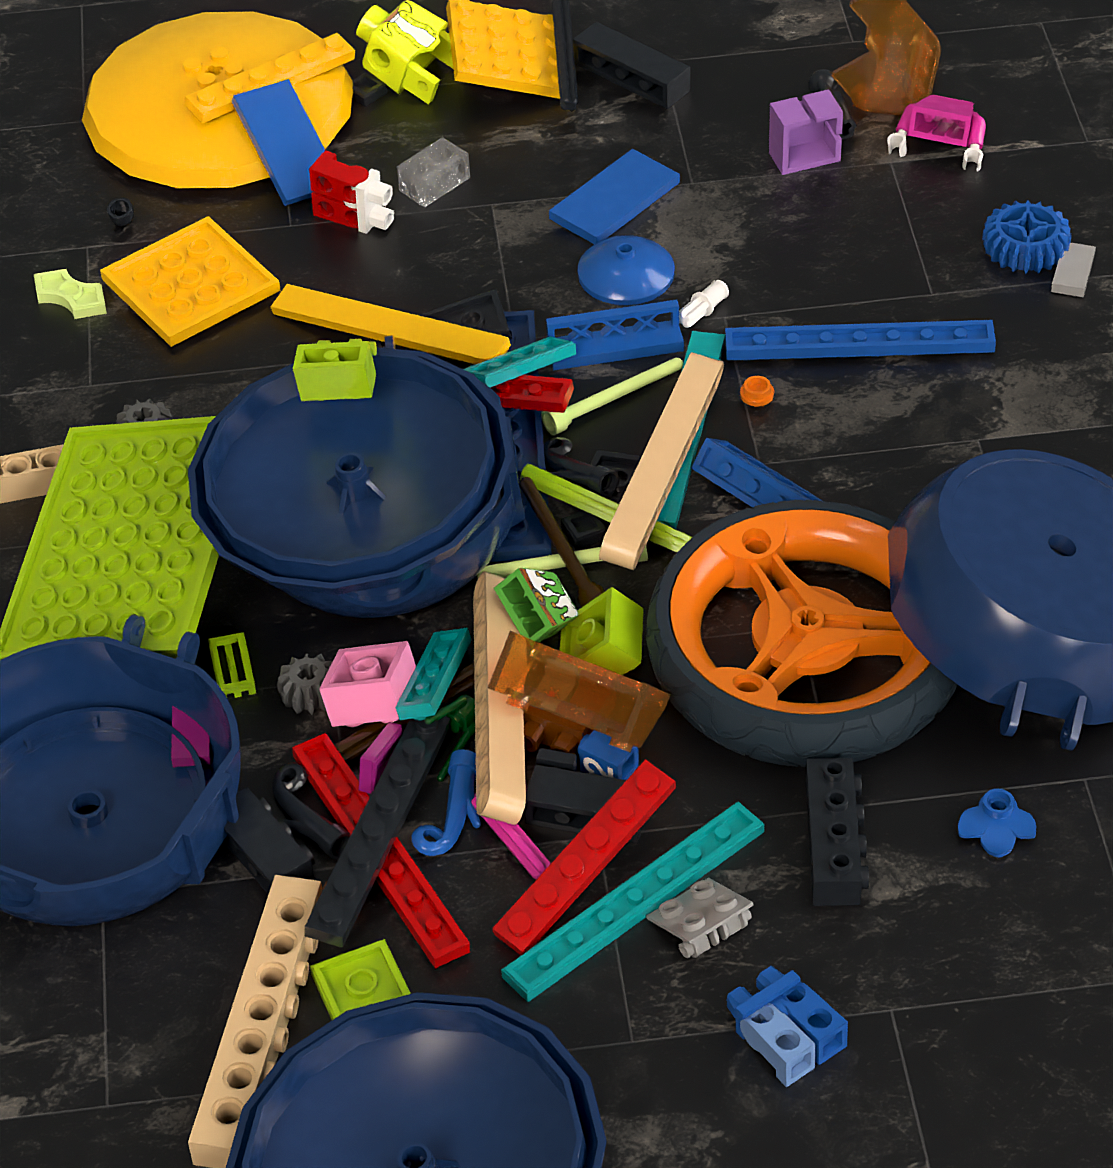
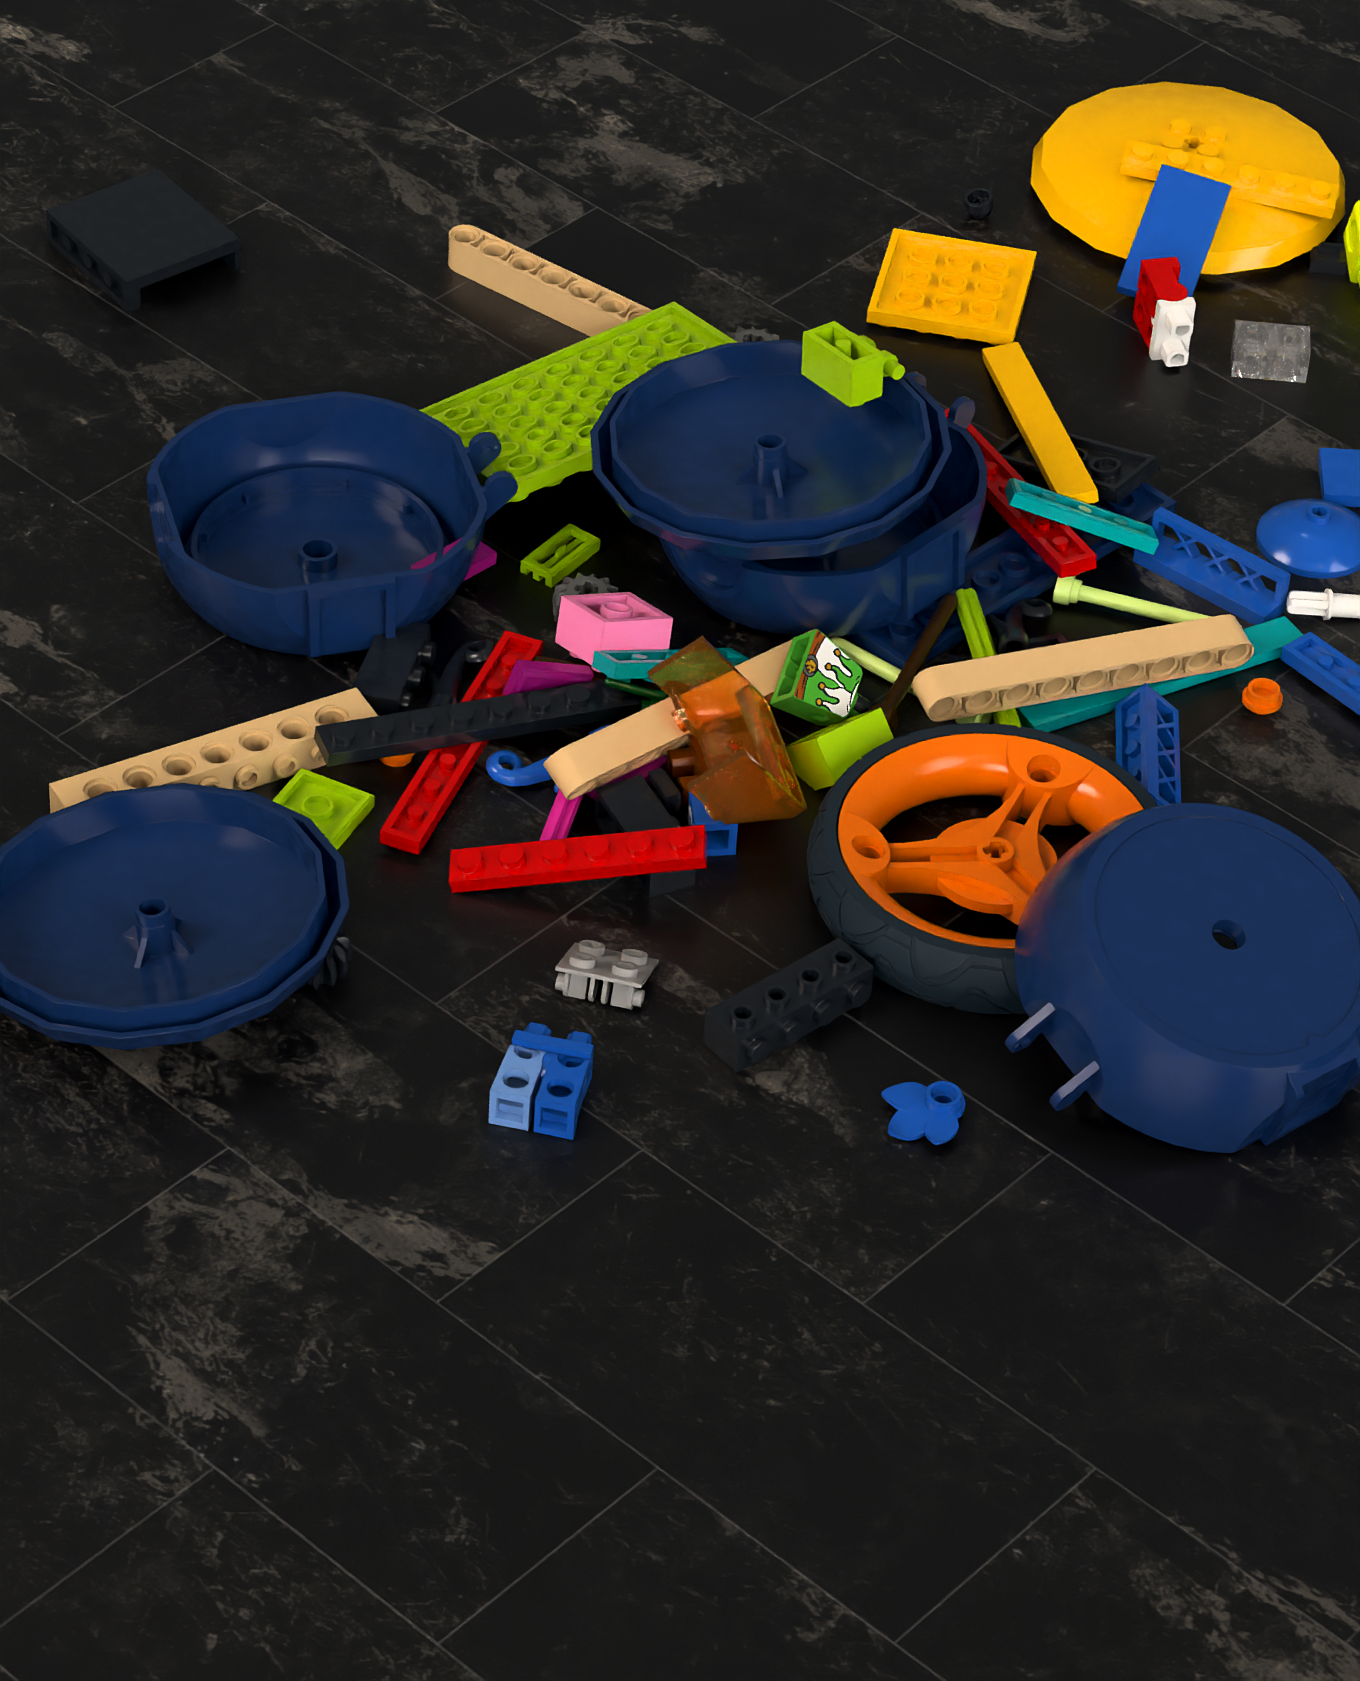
camera: 45 degrees right, 5 degrees down
(78, 297) = (855, 238): yellowish green tile -> none
(632, 901) = (577, 922): teal tile -> none

